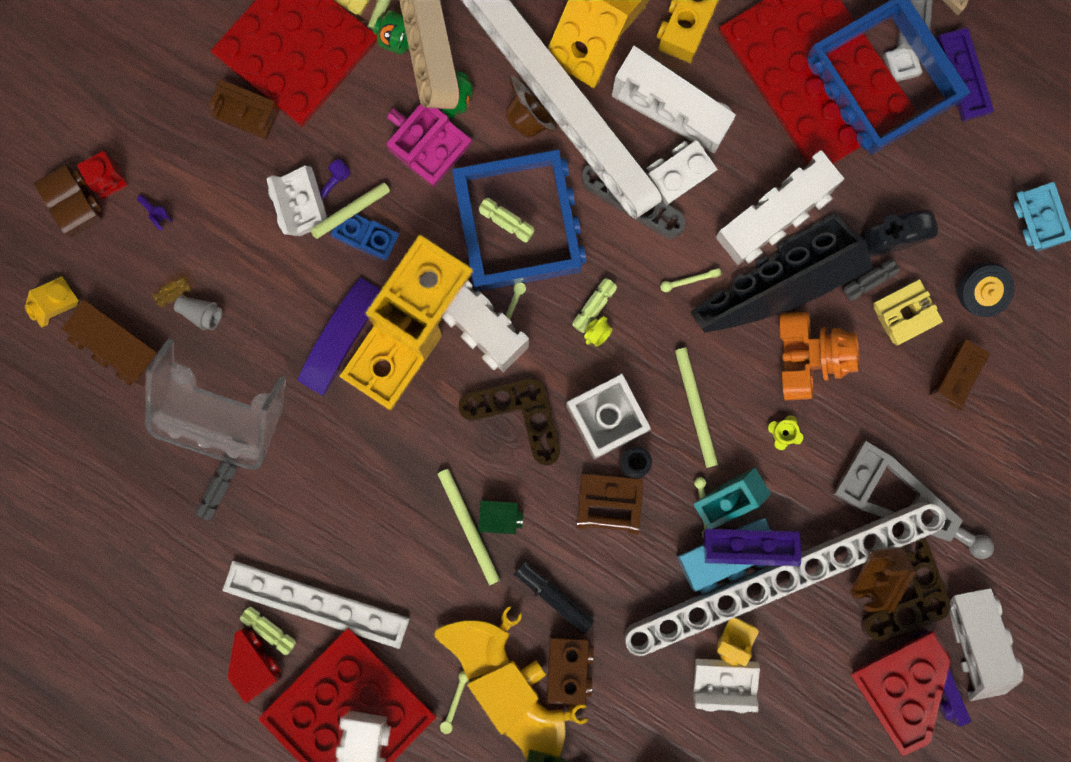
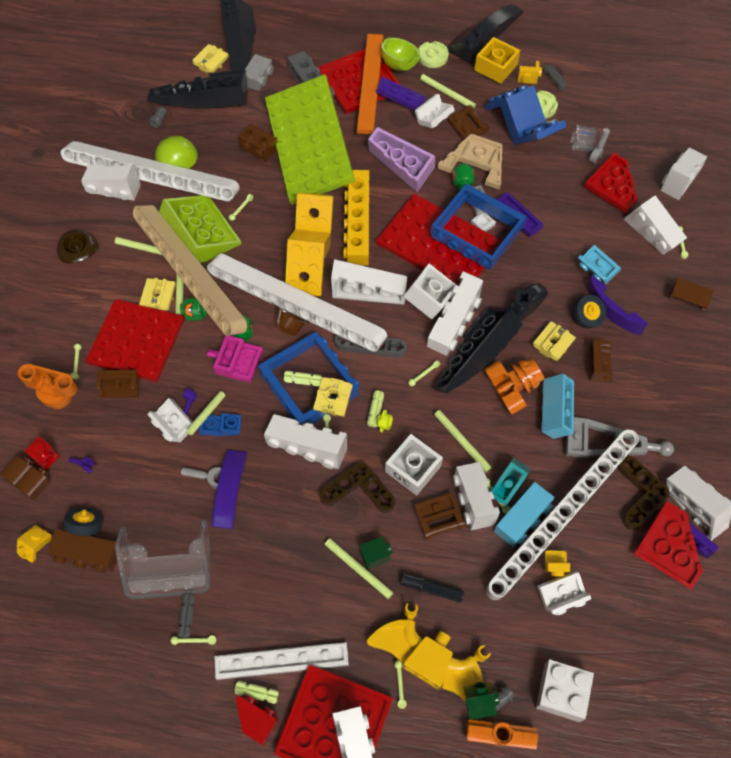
camera: 20 degrees left, 20 degrees down
(124, 302) = (83, 521): none -> black wheel
(144, 79) = (52, 387): none -> orange beam
(171, 291) = (111, 505): clear yellow piece -> none
(188, 66) = (74, 375): none -> yellowish green hinge
(200, 312) = (135, 509): light grey cone -> none
(237, 536) = (211, 640): none -> yellowish green hinge
(310, 299) = (211, 475): none -> light grey piece
(406, 322) = (267, 457): yellow bracket -> none
(537, 250) = (323, 399): none -> light yellow piece
(568, 670) = (463, 628): reddish brown brick -> none
(644, 458) = (442, 483): black brick -> none
(672, 498) = (475, 496): none -> white wedge
(682, 171) = (391, 316): white bracket -> none
(752, 547) = (536, 499): dark purple plate -> none
(759, 156) = (430, 291): none -> white brick
(789, 424) = (521, 427): neon yellow plate -> none
(858, 419) = (558, 406): none -> medium azure brick
(871, 280) = (524, 333): dark grey axle -> none
(884, 579) = (622, 486): reddish brown hinge -> none
(1040, 335) = (631, 323): none -> dark purple slope

